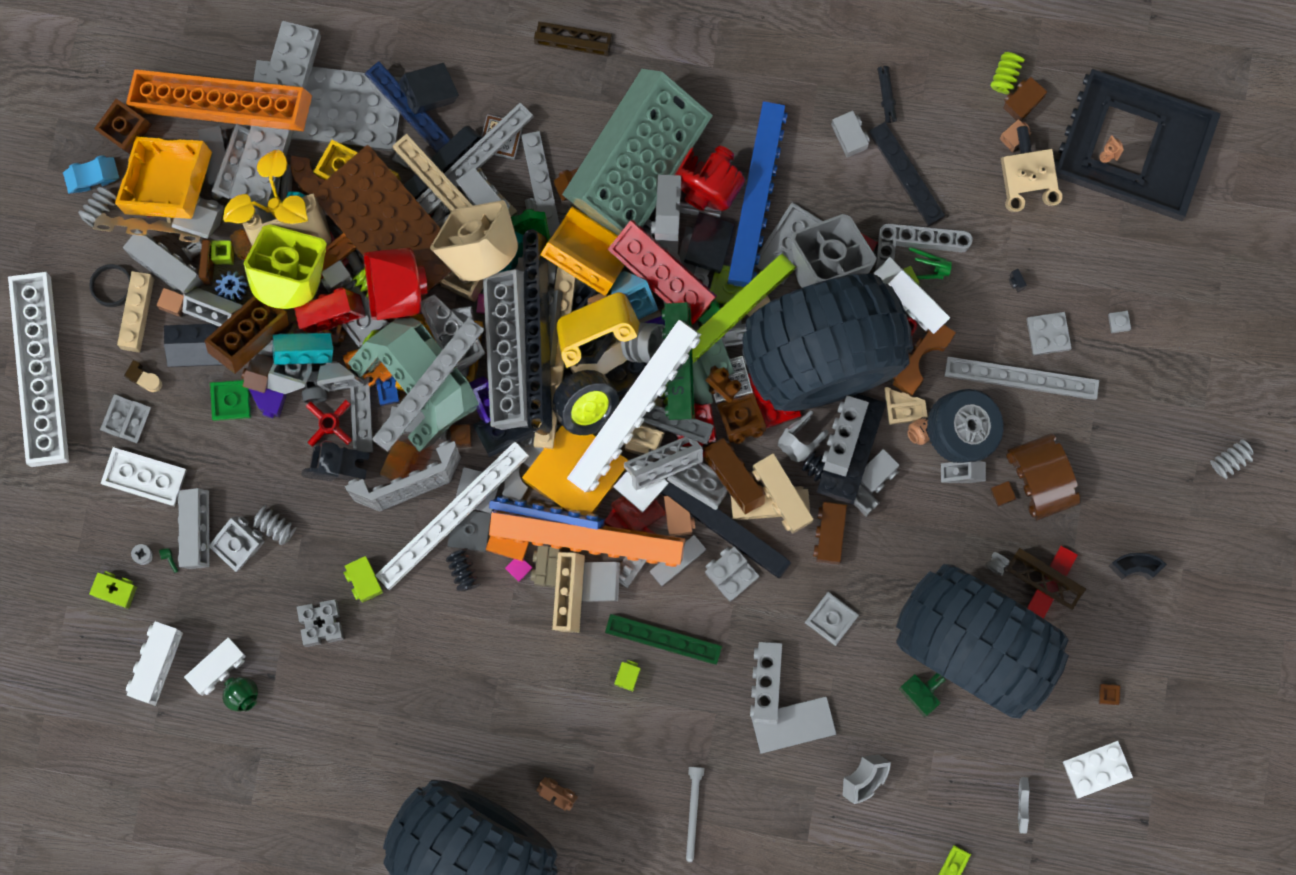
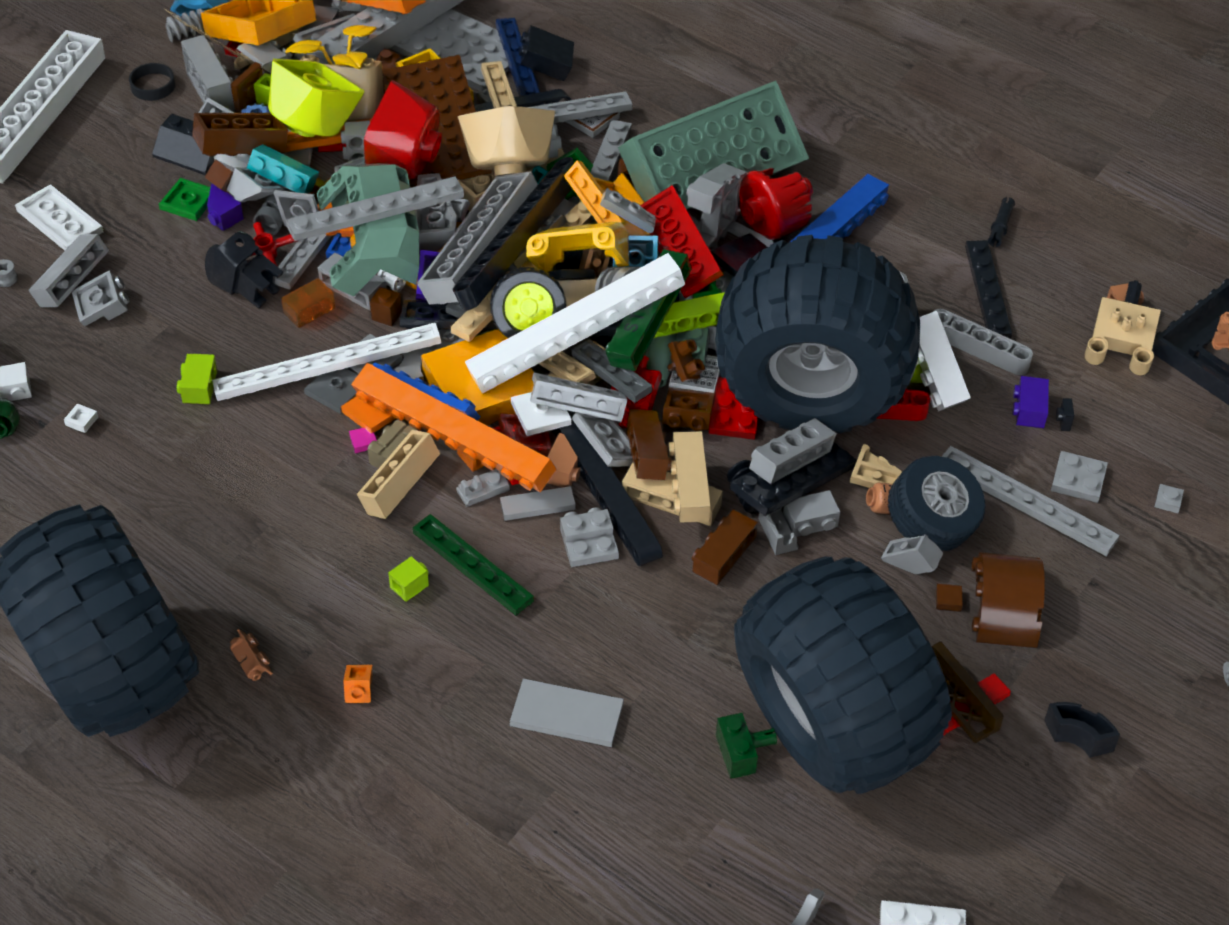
camera: 25 degrees right, 30 degrees down
(125, 418) = (80, 173): light grey slope -> none
(135, 312) = (156, 102): tan brick -> none
(147, 381) = (122, 150): leg -> none
(167, 554) = (26, 283): dark green hand -> none
(171, 302) = (190, 105): nougat brick -> none
(273, 526) = (147, 300): light grey piece -> none
(301, 660) = (81, 418): none -> white plate
(326, 612) = (125, 394): light grey brick -> none
(329, 311) = (329, 152): red brick -> none
(410, 487) = (334, 304): light grey slope -> none
(462, 570) = (303, 412): black piece -> none
(572, 43) = (706, 76): dark brown fence -> none
(600, 581) = (440, 481): light grey tile -> none
(611, 269) = (628, 210): none -> light grey hinge
(642, 776) = (358, 683): none -> orange bracket
(696, 775) = (420, 707): light grey piece -> none
(769, 713) = (561, 651): light grey brick -> none
(792, 446) = (733, 445): light grey piece -> none
(831, 618) = (677, 630): light grey tile -> none
(850, 133) = (945, 235): light grey brick -> none
(866, 779) = (620, 800): light grey brick -> none
(910, 377) = (944, 427): dark orange arch -> none
(941, 266) = (985, 371): green plant -> none
(987, 280) = (1032, 402): none -> dark purple brick
(1006, 71) = (1140, 248): lime piece -> none
(1024, 99) = (1154, 274): reddish brown brick -> none
(1109, 694) = (979, 856): reddish brown tile -> none

